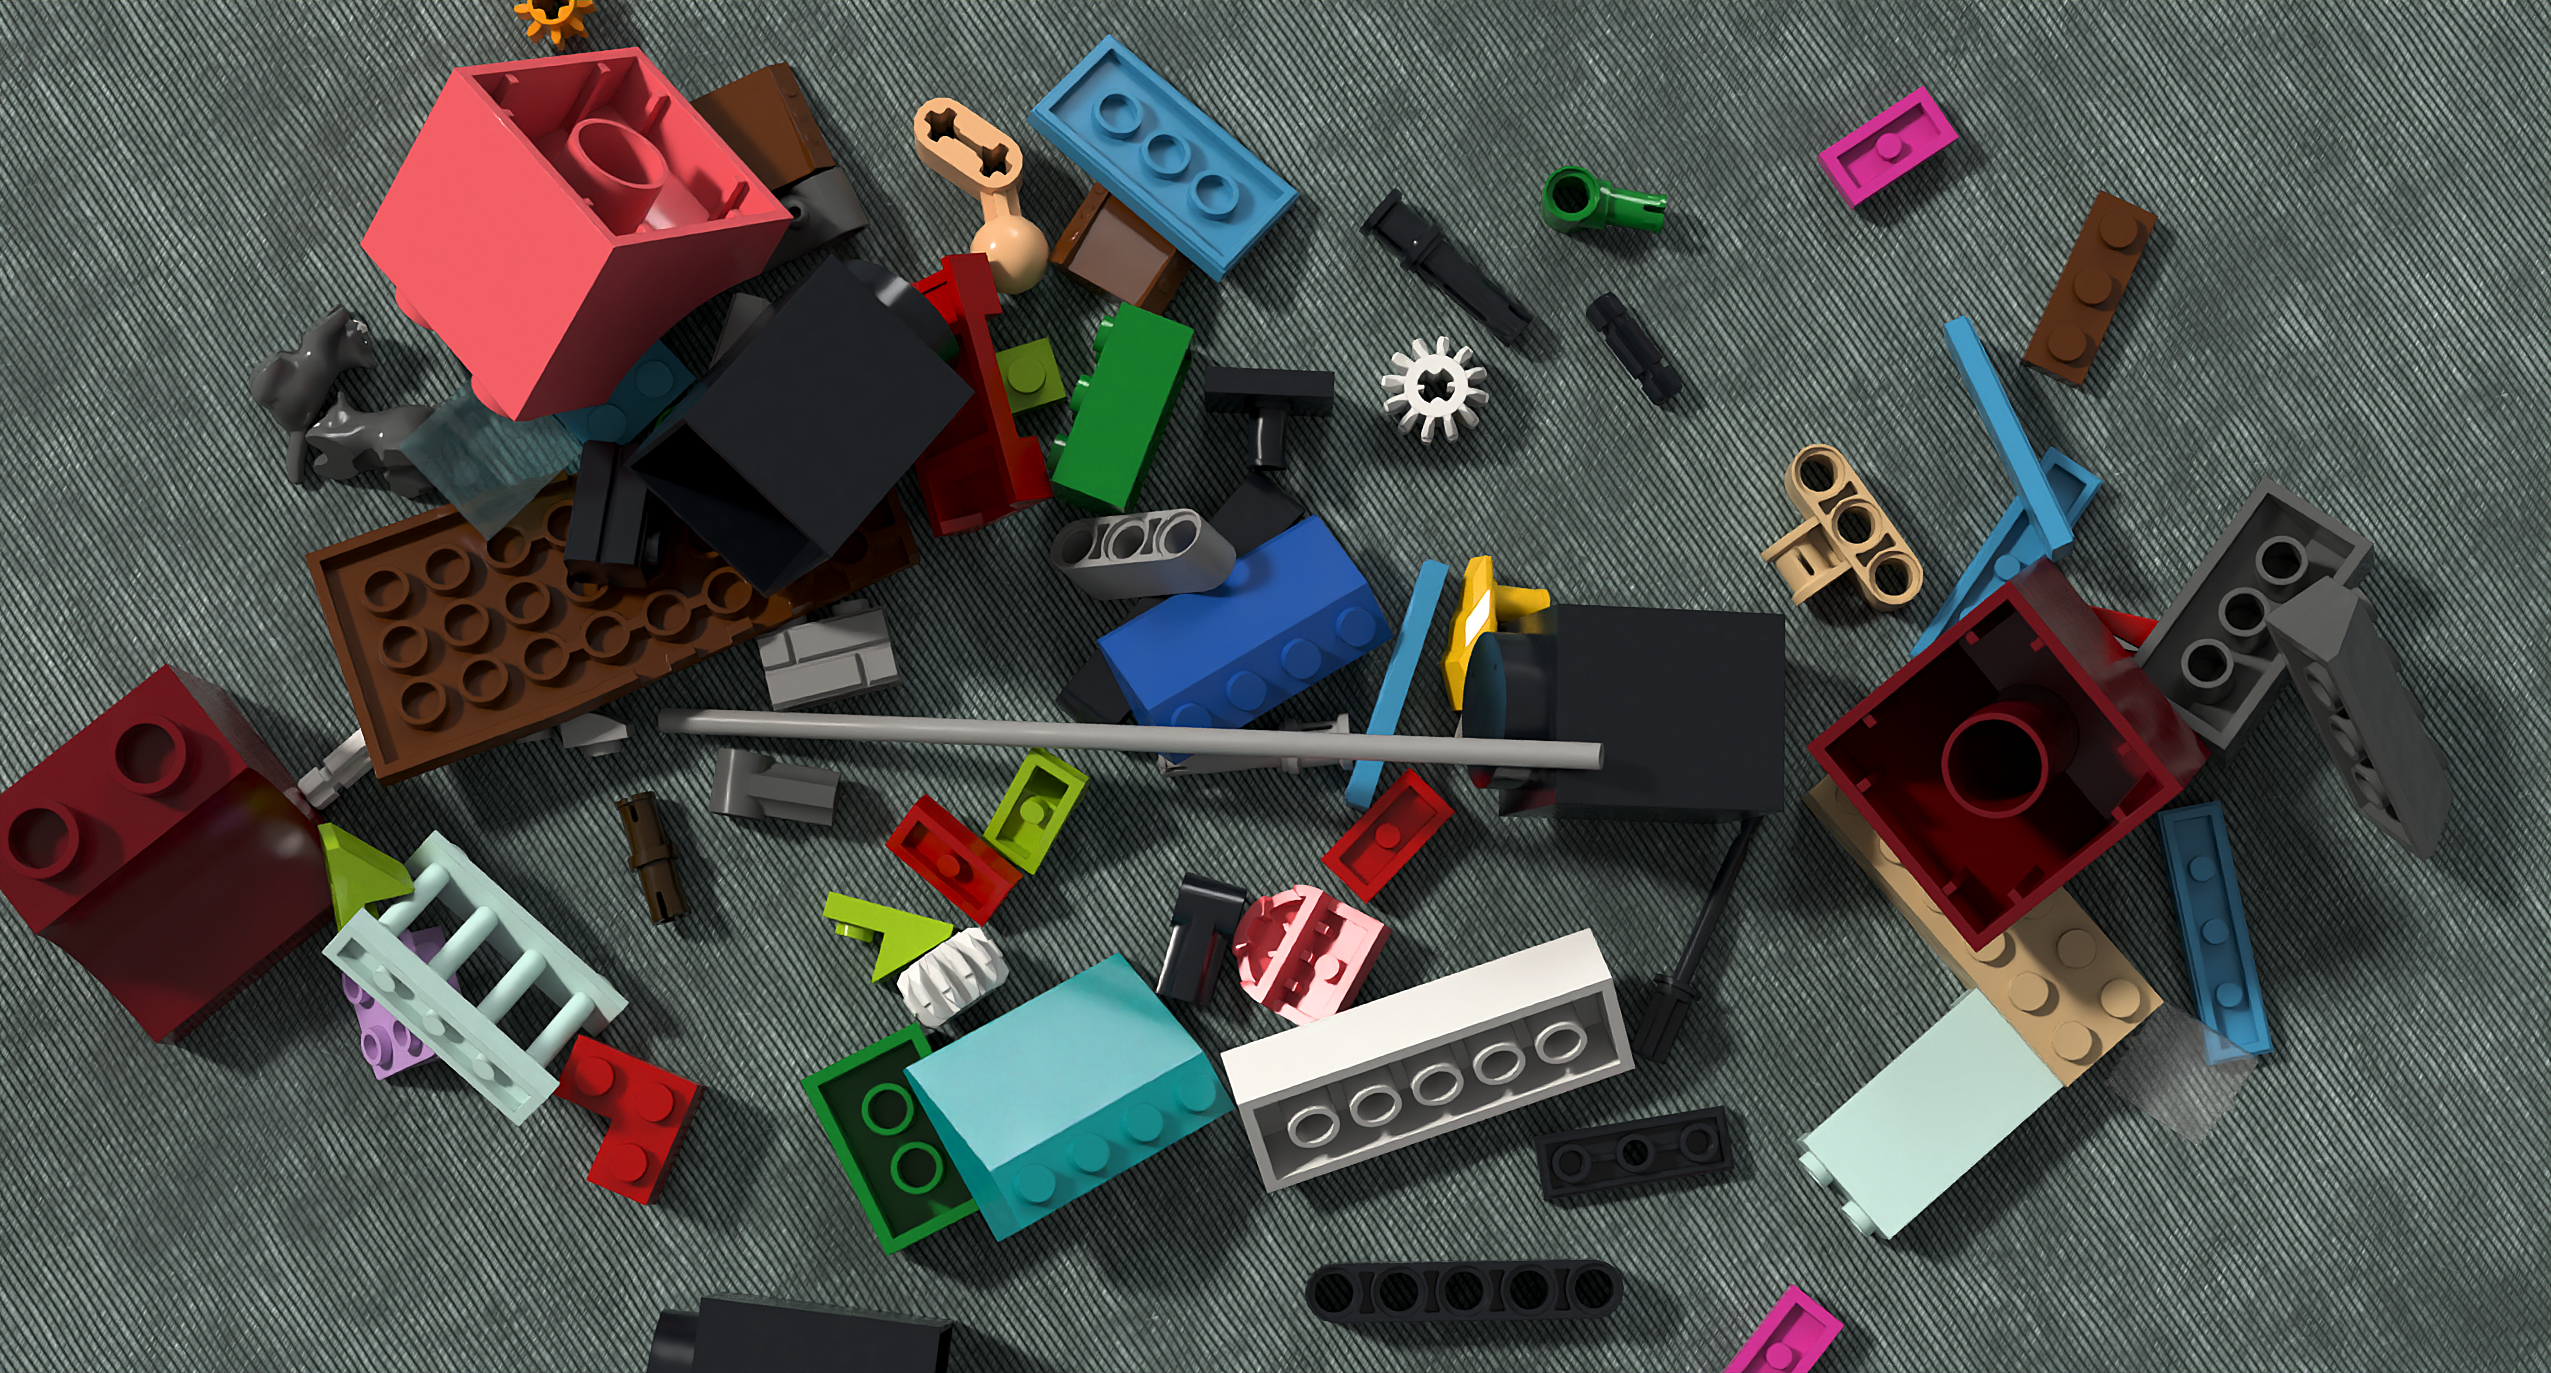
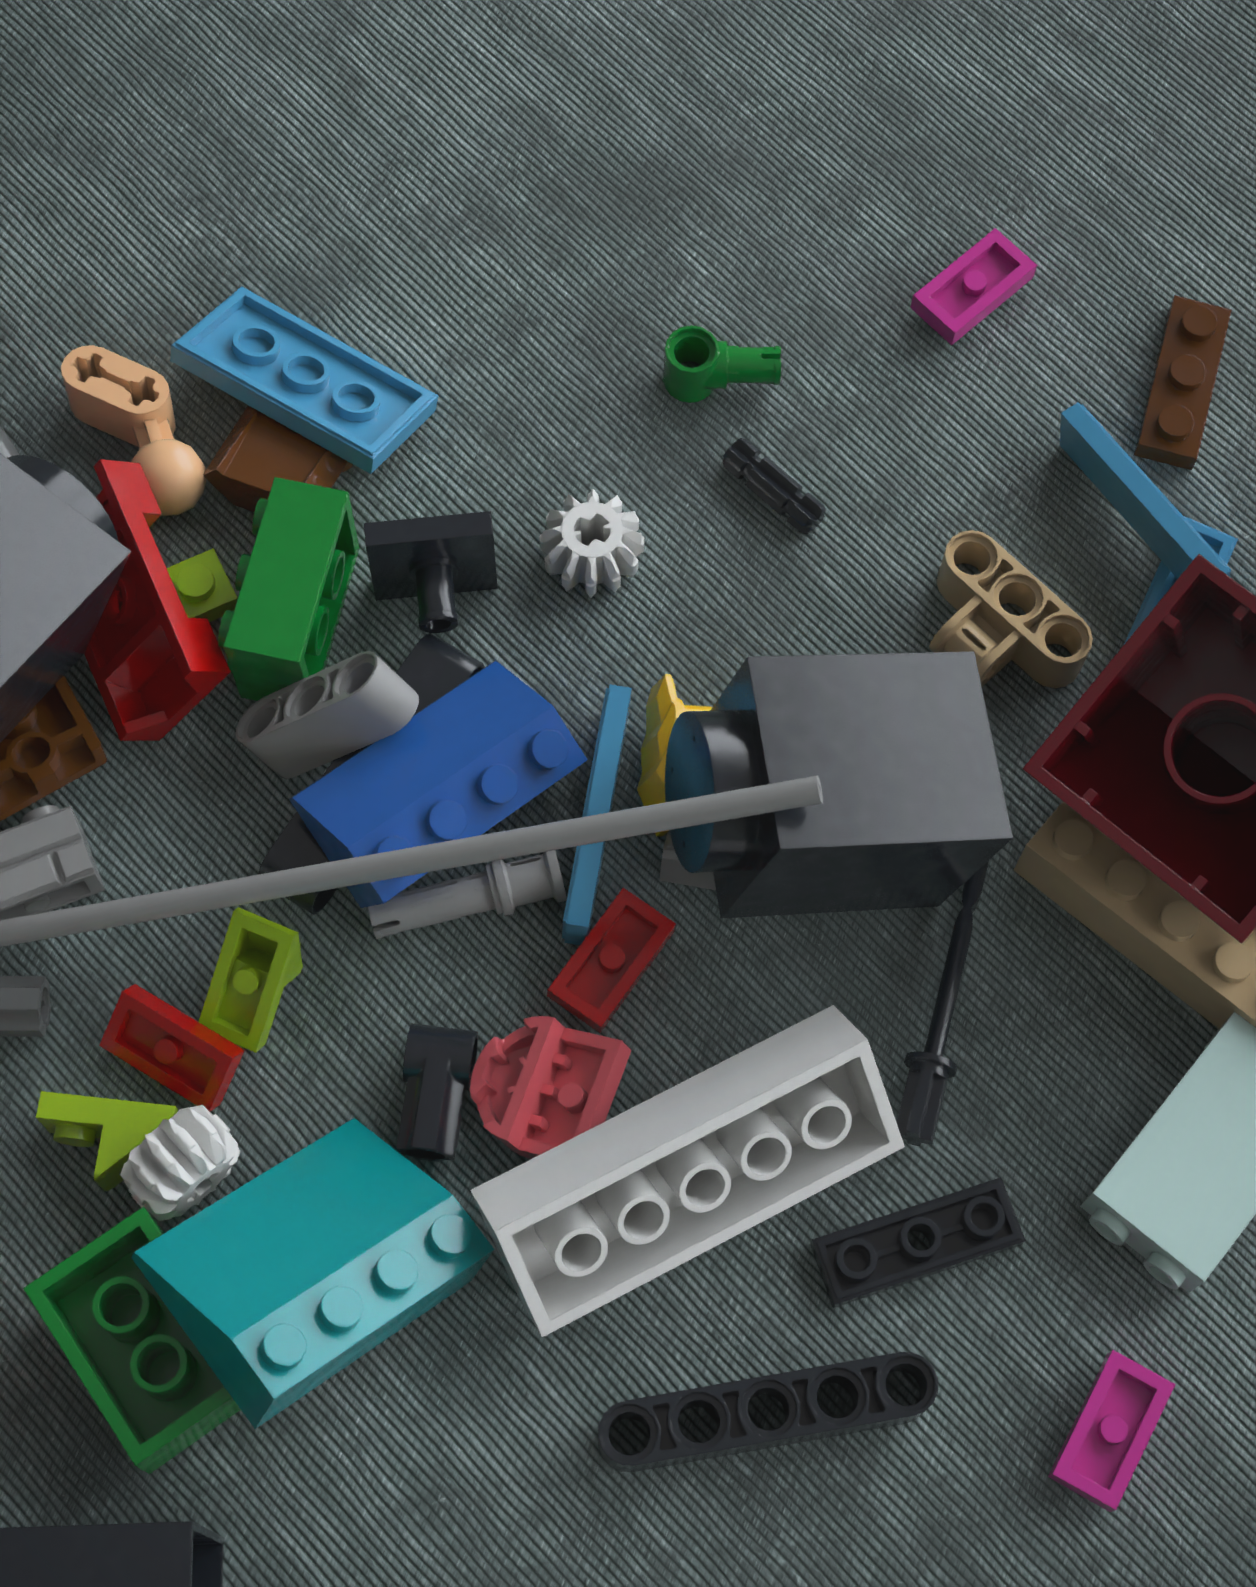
camera: 10 degrees left, 15 degrees down
(1424, 249) = (563, 425): black pin -> none

